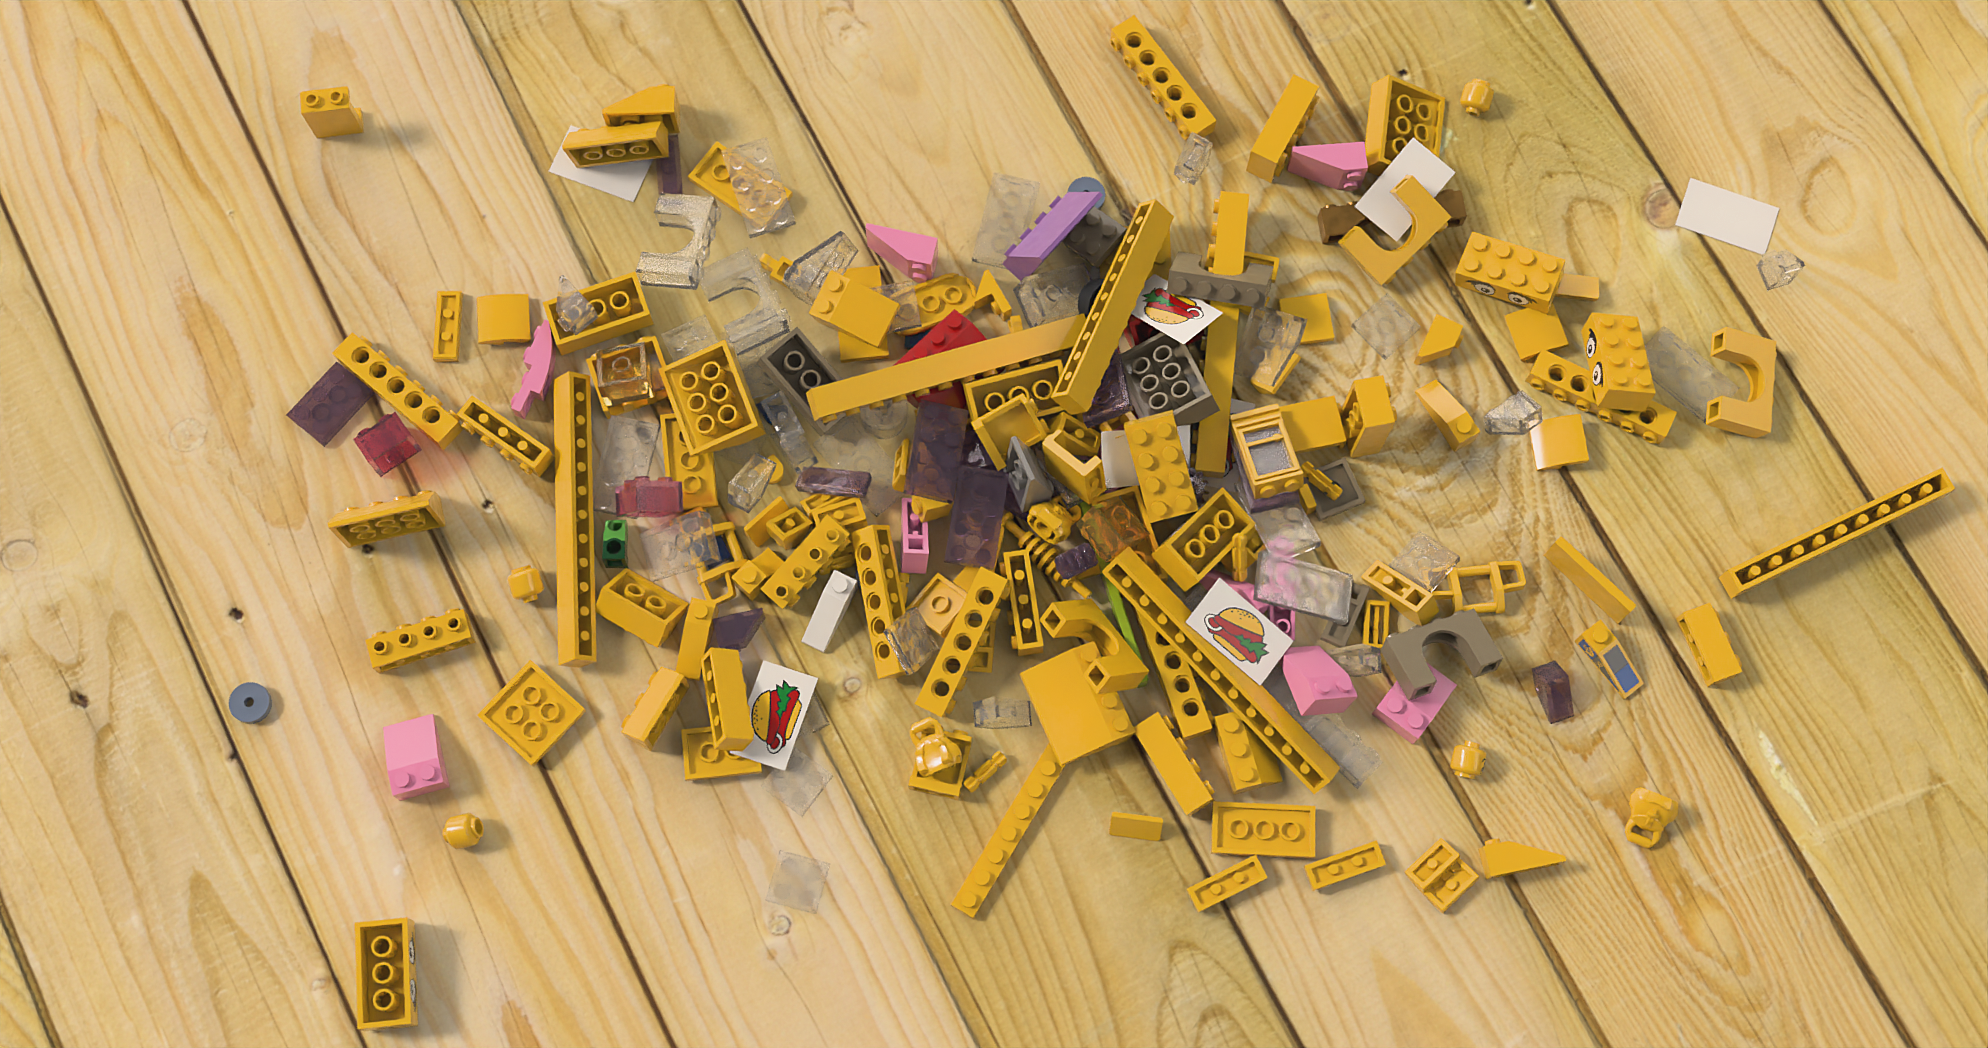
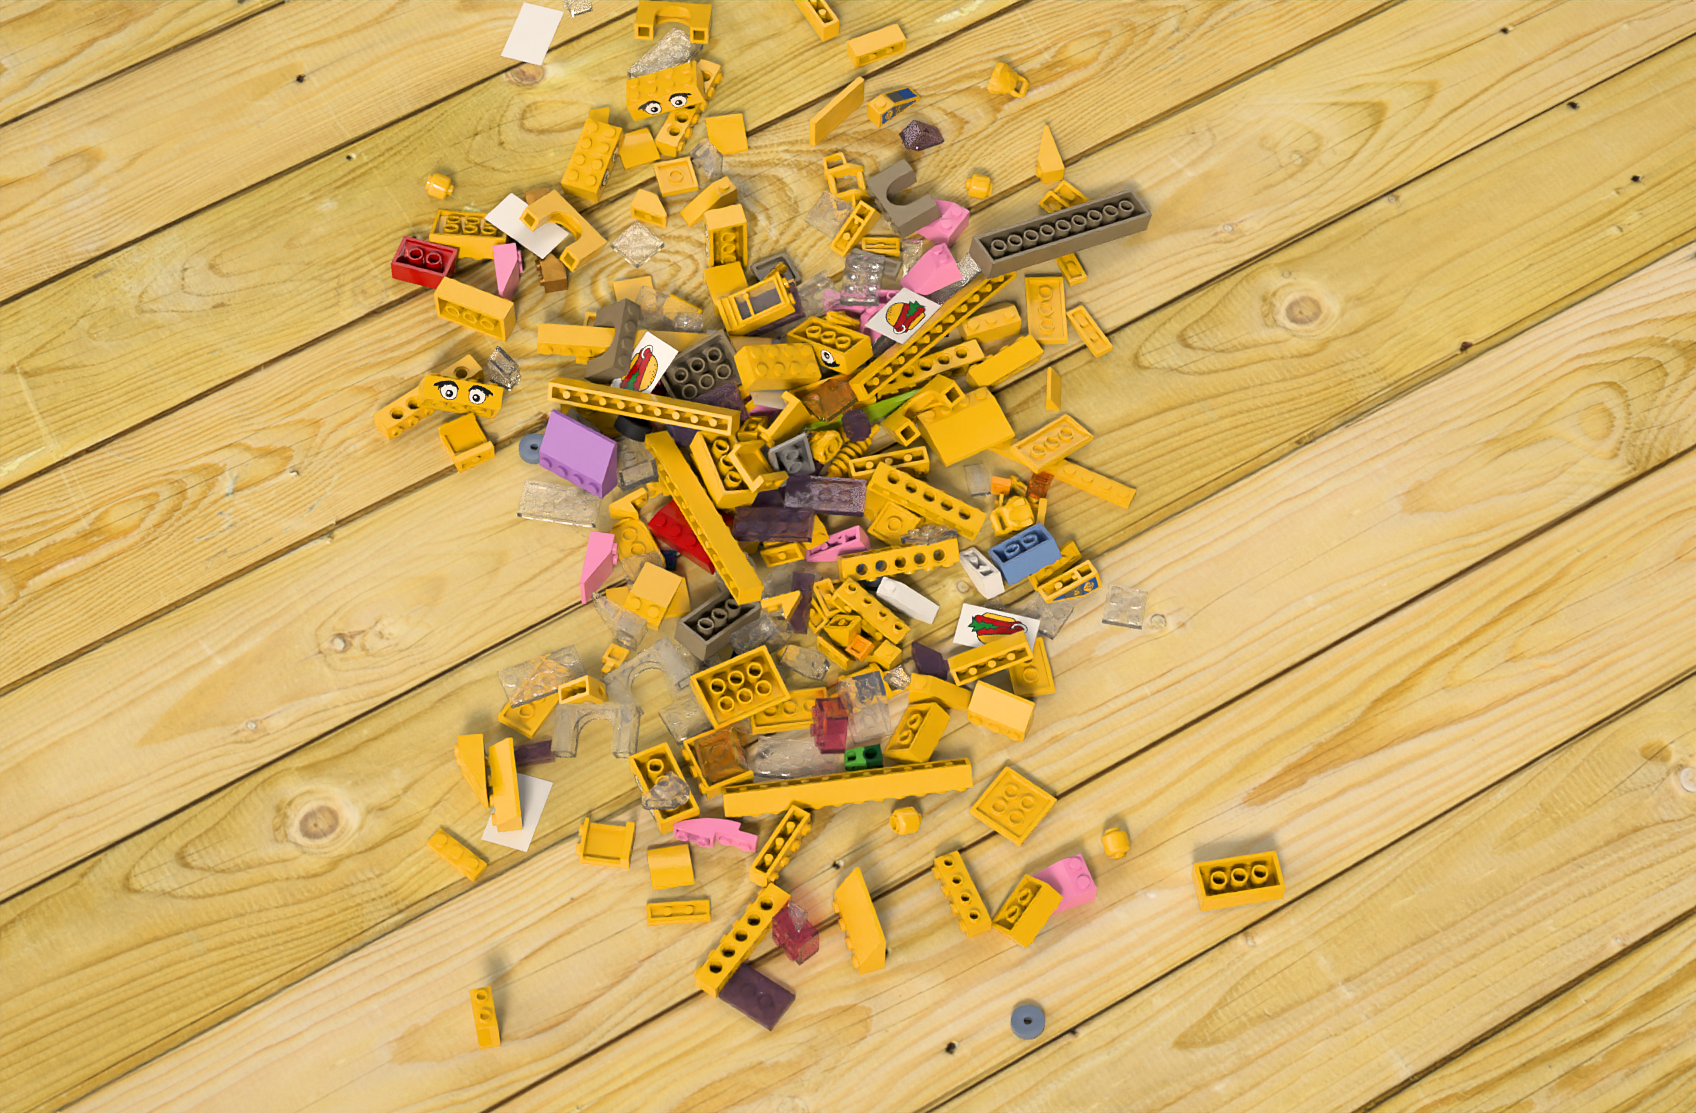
camera: 95 degrees left, 15 degrees down
(381, 710) = (1026, 911): none -> yellow slope
(384, 434) = (798, 915): none -> clear slope
(542, 251) = (606, 844): none -> yellow panel
(551, 98) = (457, 855): none -> yellow plate
(712, 585) = (897, 678): none -> clear slope
(726, 227) = (582, 690): none -> yellow torso
(762, 546) = (859, 648): none -> light orange plate
(828, 460) = (787, 601): none -> yellow slope
(830, 813) = (1072, 584): none -> yellow slope
(863, 704) = (982, 573): none -> white slope
(865, 798) = (1070, 555): none -> yellow plate
(873, 756) = (1025, 553): none -> medium blue brick
(970, 784) = (1039, 485): none -> clear orange slope
(988, 741) = (1000, 486): none -> light orange plate
(1048, 813) = (1051, 443): none -> yellow tile
(1097, 120) = (465, 442): none -> yellow panel
(1145, 102) = (459, 396): none -> yellow brick
(1245, 370) = (688, 323): none -> clear slope
(1355, 75) = (423, 262): none -> red slope
(1370, 854) = (1059, 233): none -> dark tan brick
(1489, 375) = (675, 177): none -> yellow plate

